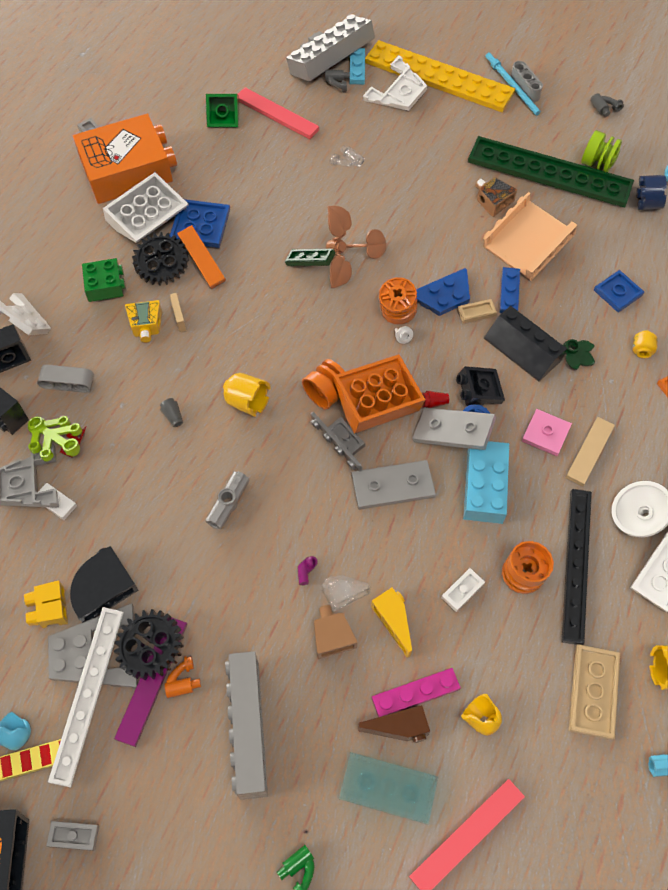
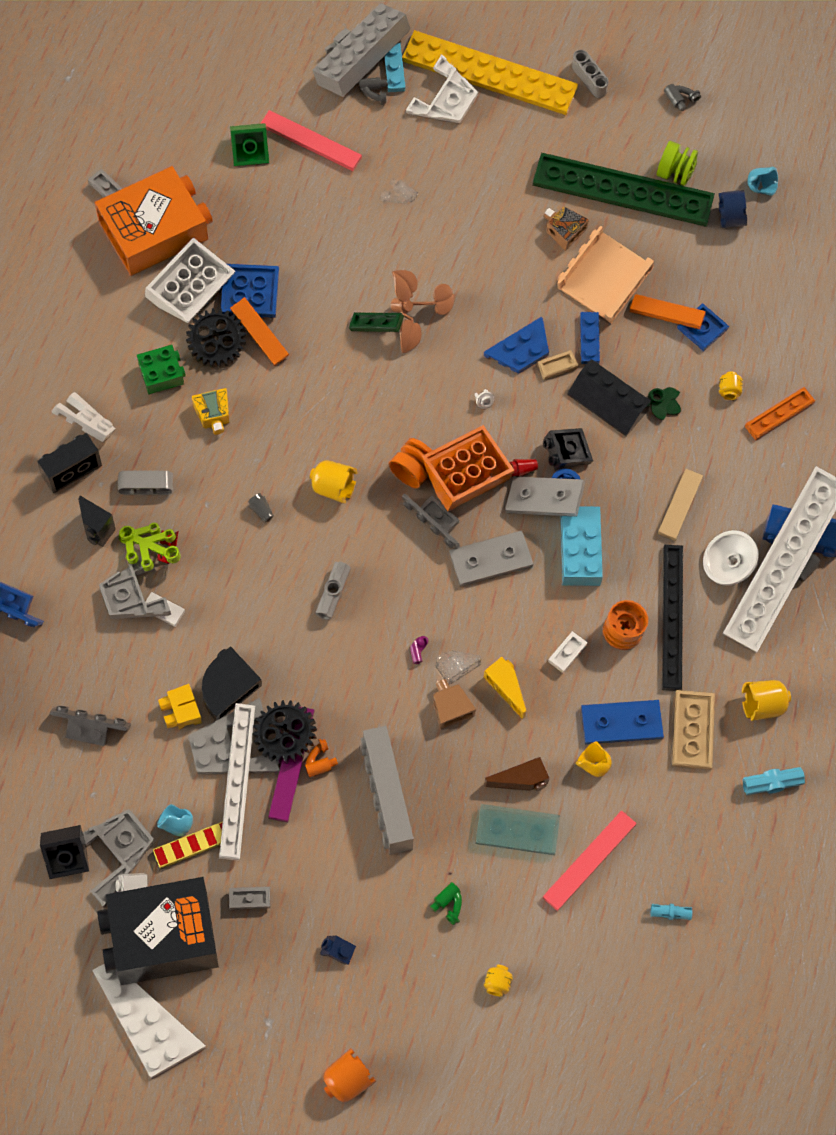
camera: 10 degrees left, 5 degrees up
(177, 311) = (246, 398): tan tile -> none
(398, 300) = (479, 373): orange wheel -> none
(416, 692) = (534, 747): dark pink plate -> none
(496, 65) = (554, 52): medium azure bar -> none
(516, 673) = (622, 722): none -> blue plate
(546, 432) = (636, 489): bright pink plate -> none
(586, 273) = (667, 311): none -> orange tile

